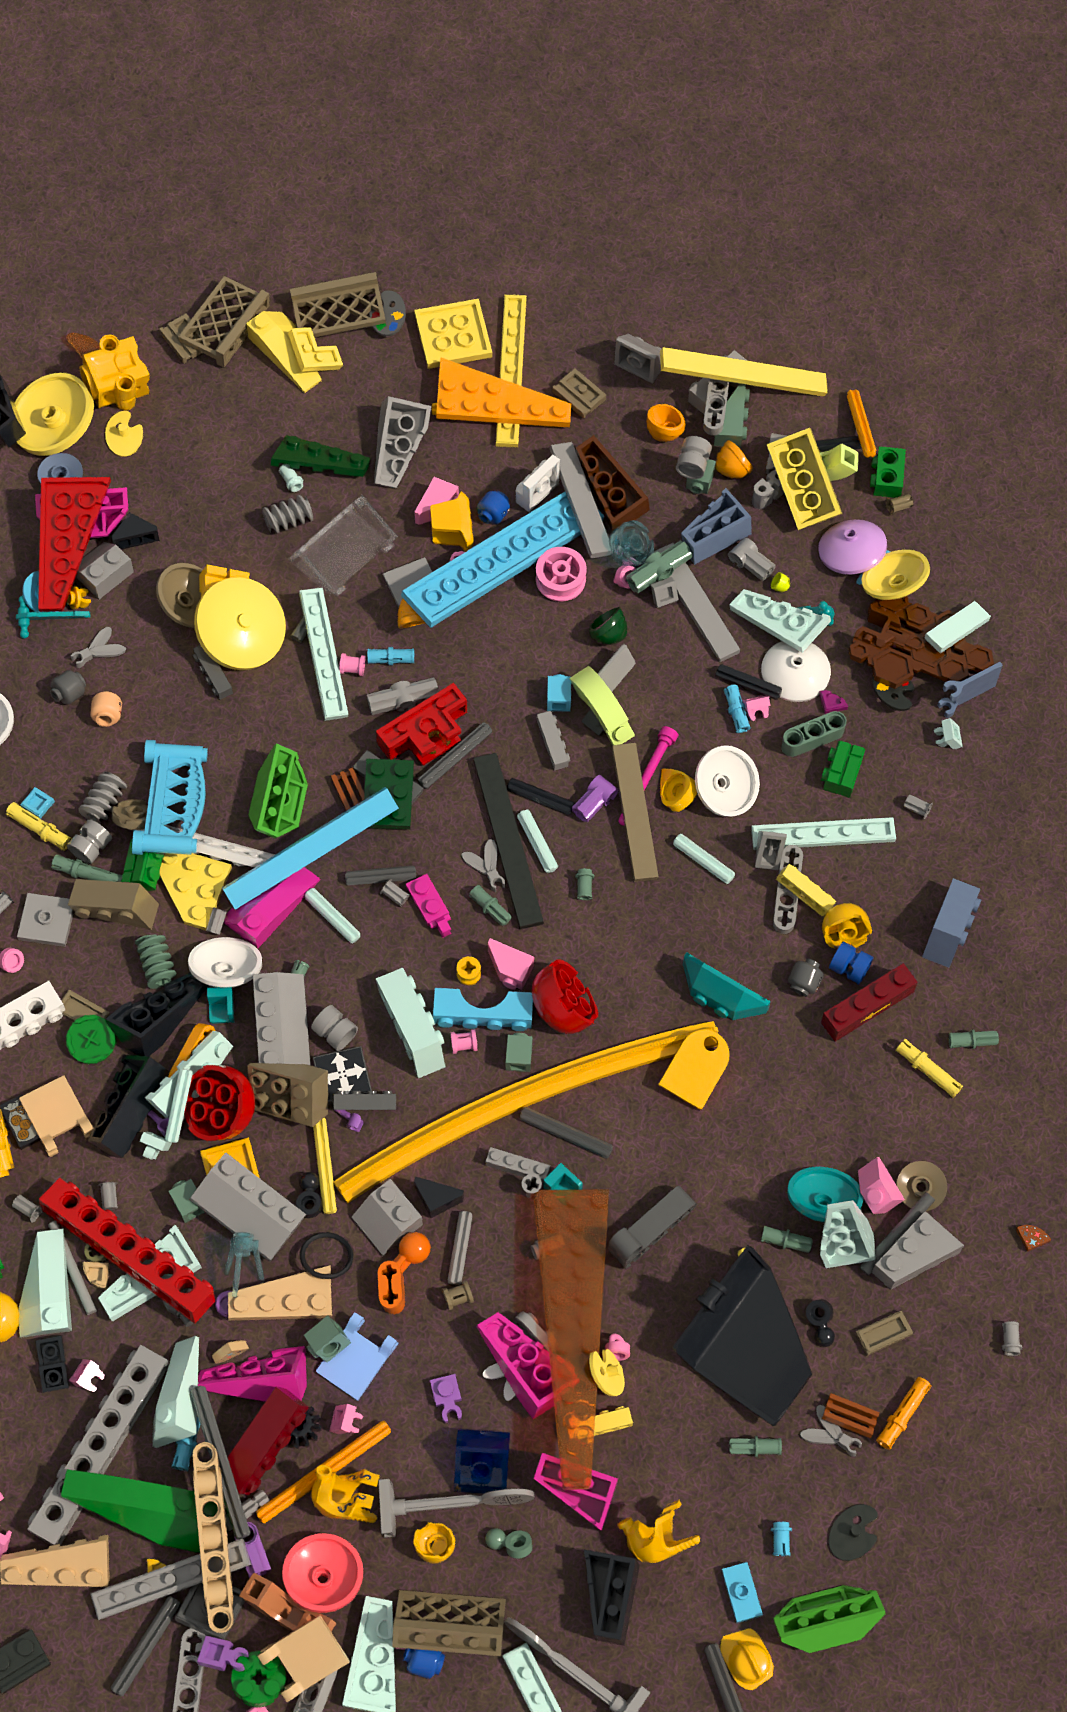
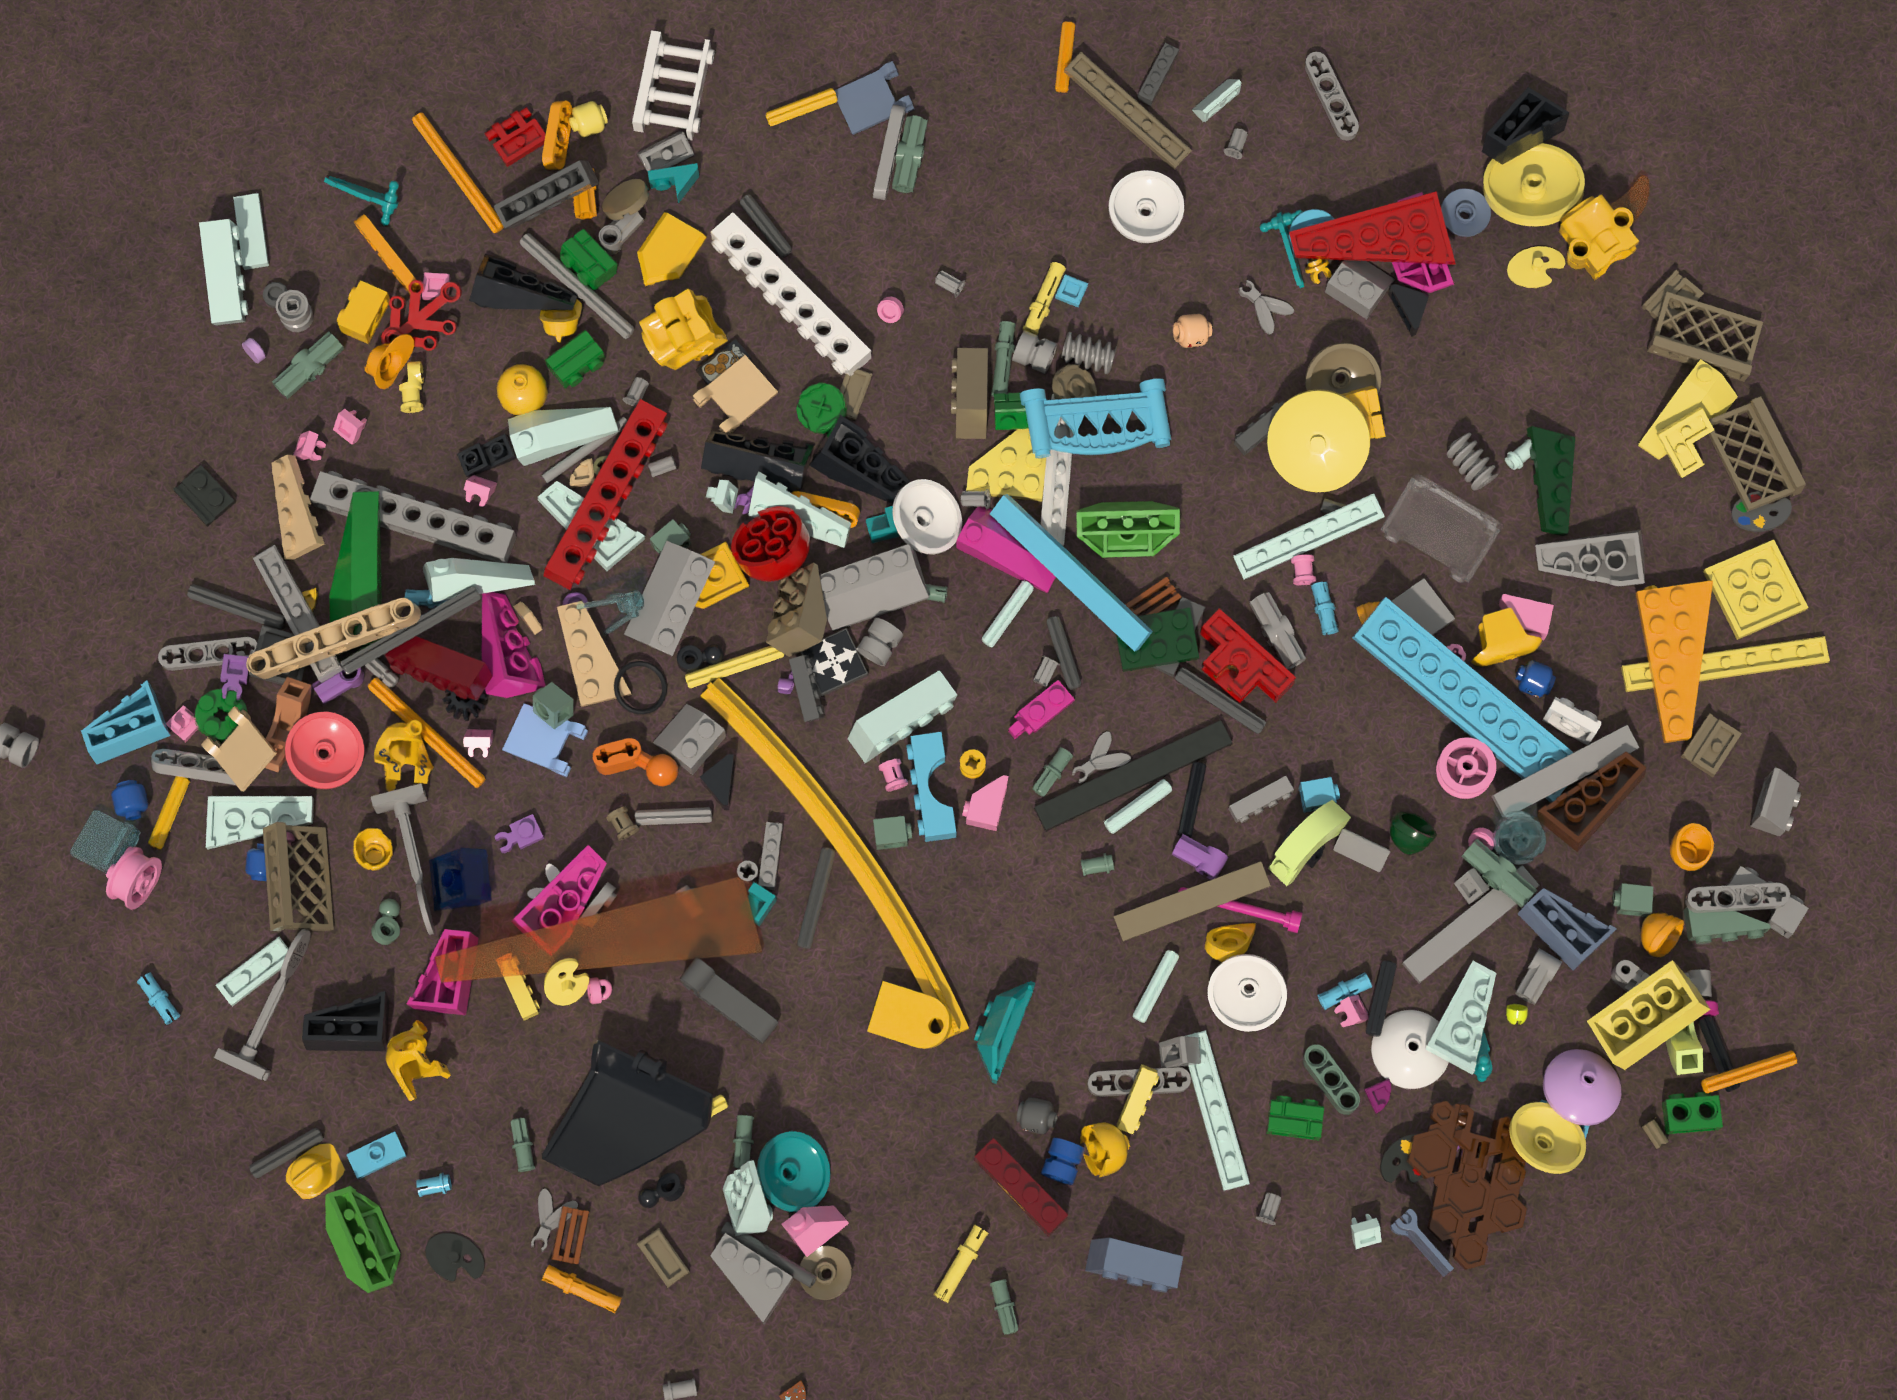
camera: 80 degrees right, 10 degrees up
(45, 920) = (942, 332): light grey plate -> none
(67, 687) = (1208, 286): dark grey head -> none
(155, 961) = (917, 449): sand green piece -> none
(178, 1105) = (760, 507): light aqua axle -> none
(556, 1000) = (957, 854): red cylinder -> none
(694, 457) = (1641, 883): light grey wheel -> none
(743, 372) = (1774, 922): light yellow tile -> none
(957, 627) = (1502, 1220): light aqua tile -> none

